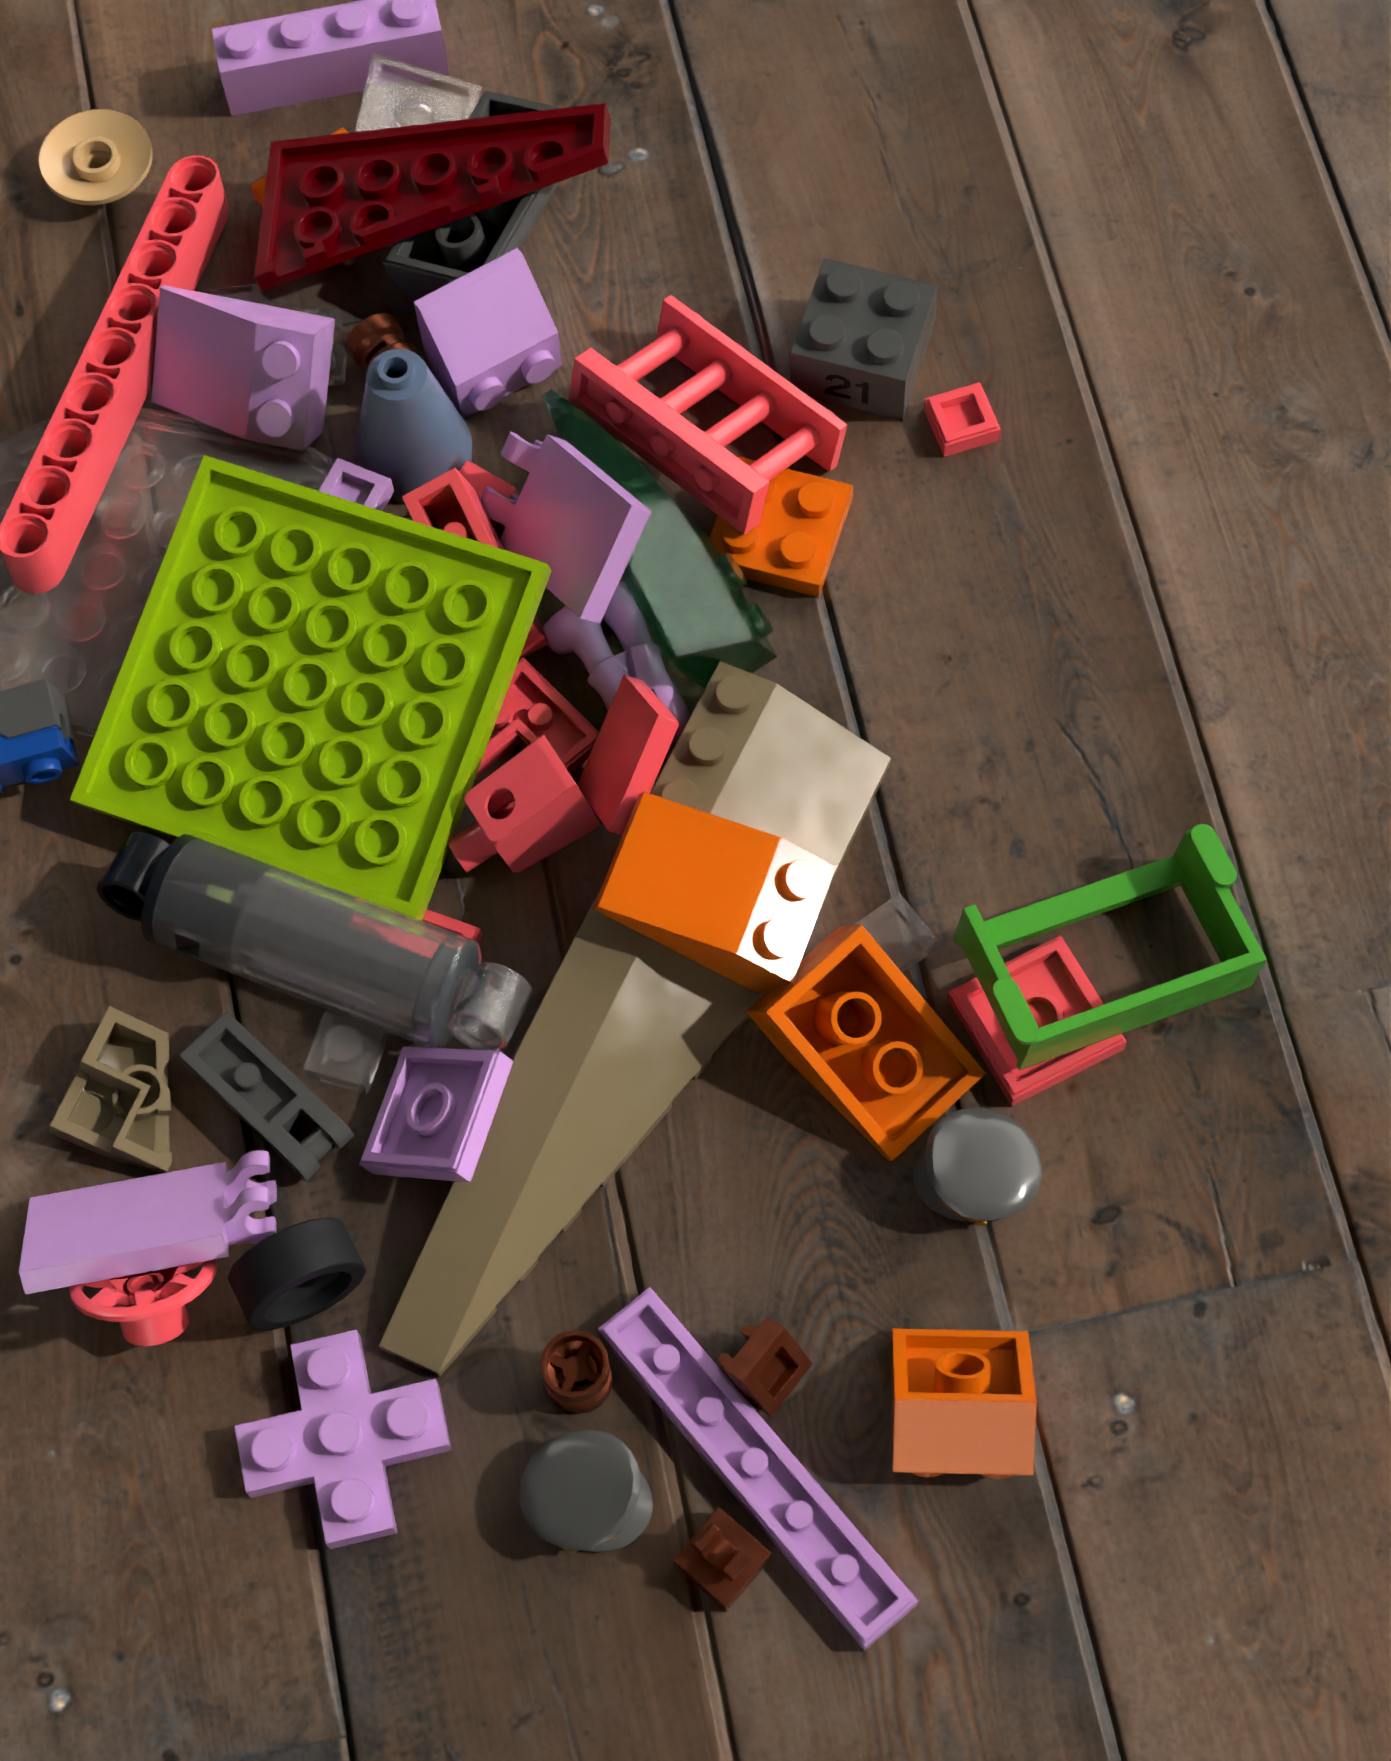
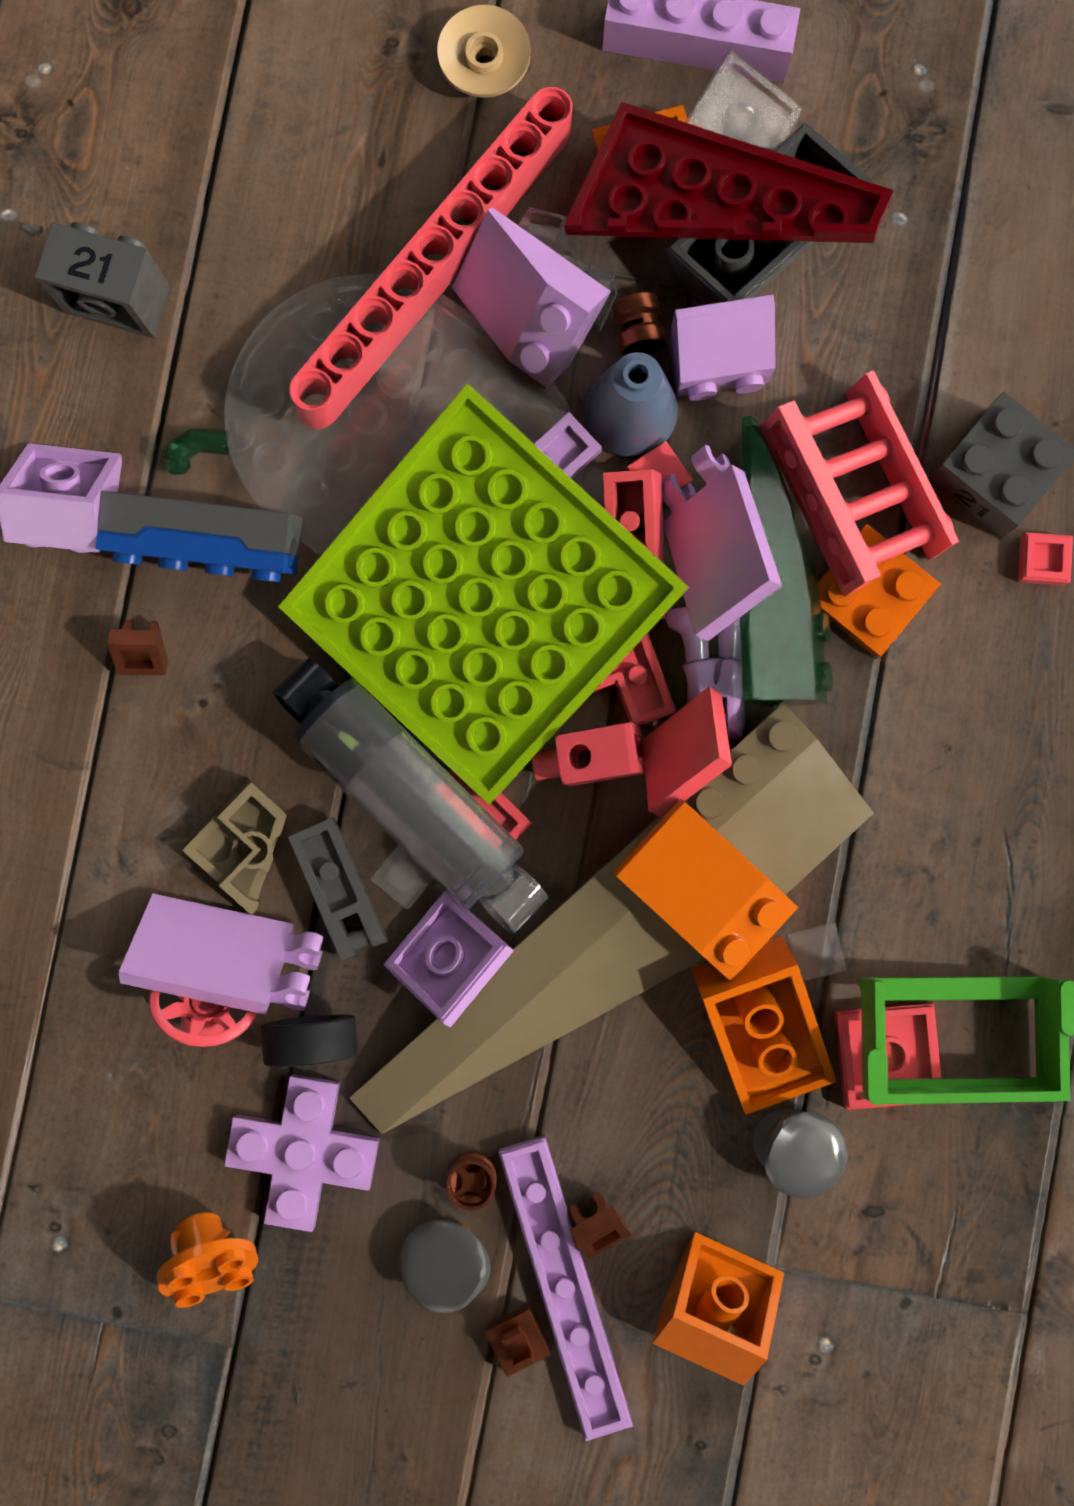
camera: 20 degrees right, 20 degrees up
(268, 1615) = (205, 1261): none -> orange plate

